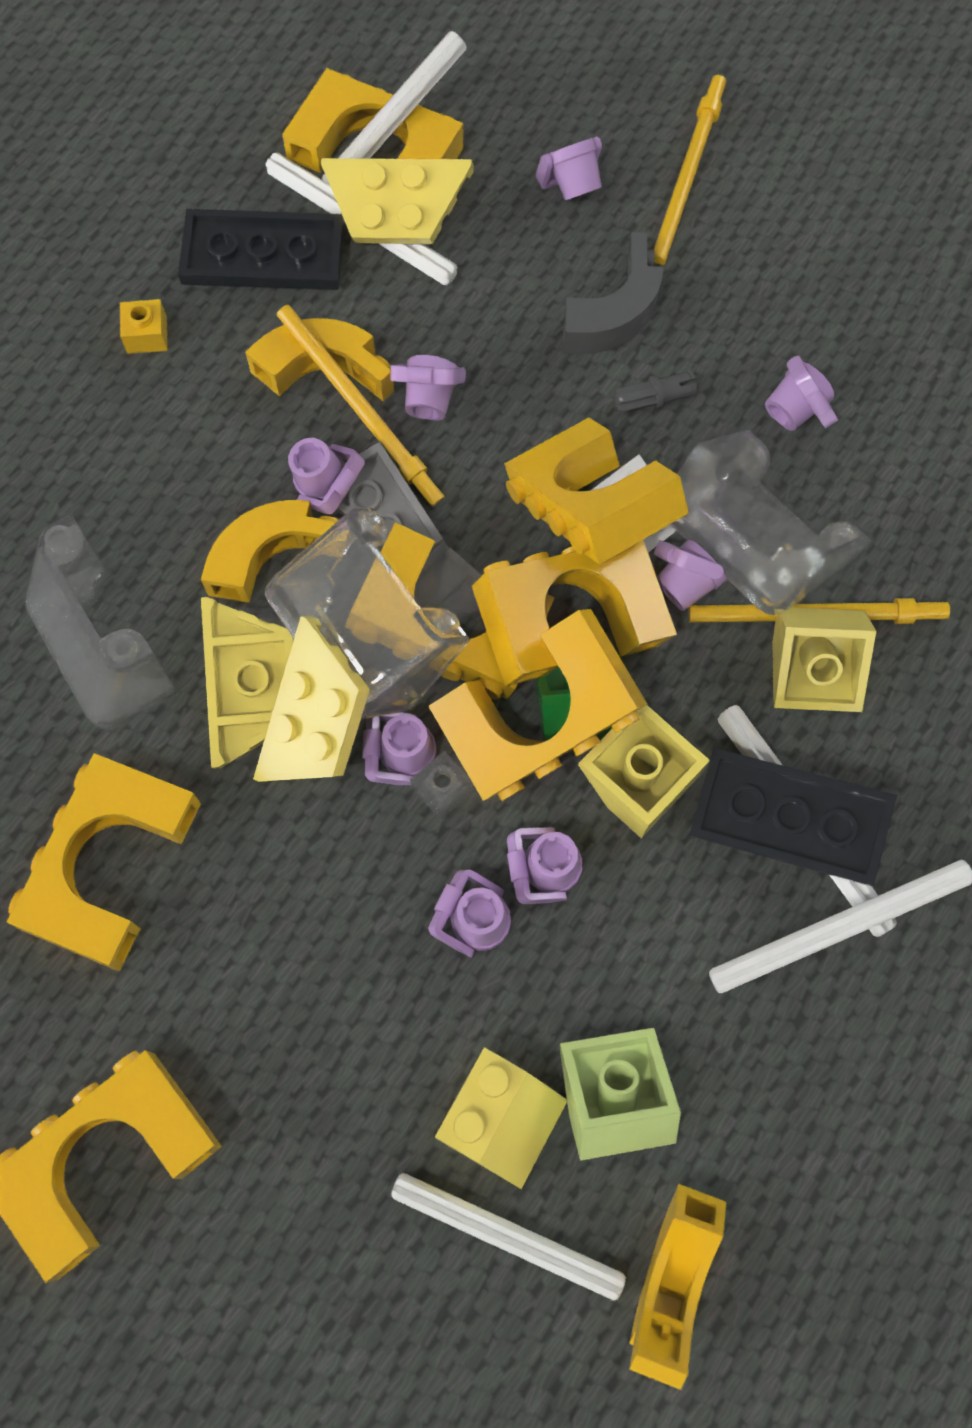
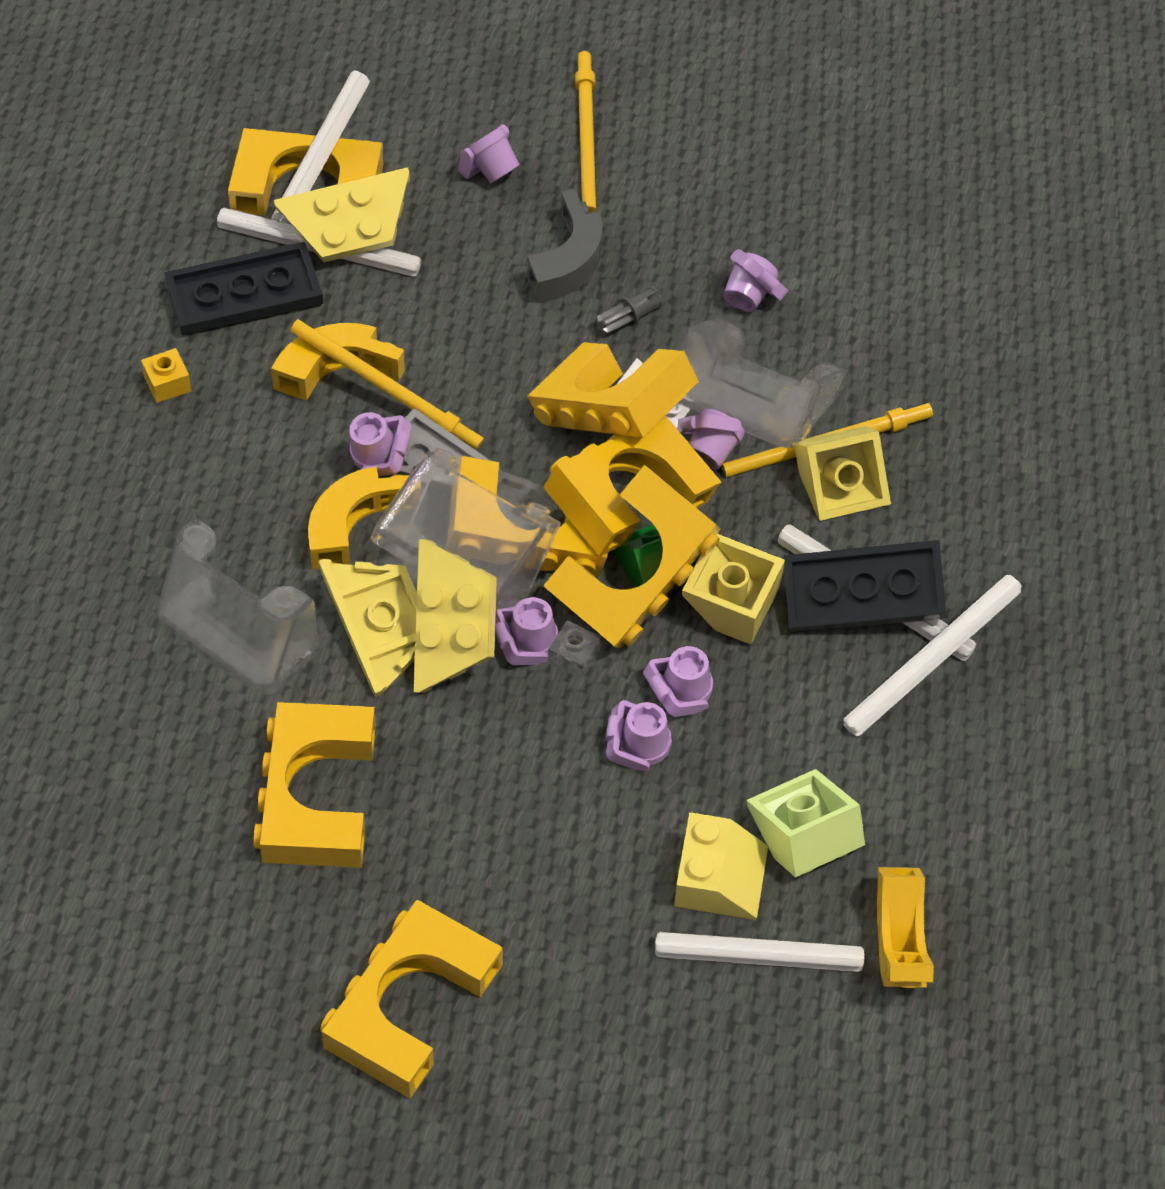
camera: 20 degrees left, 15 degrees down
(428, 385) = (437, 354): lavender piece -> none

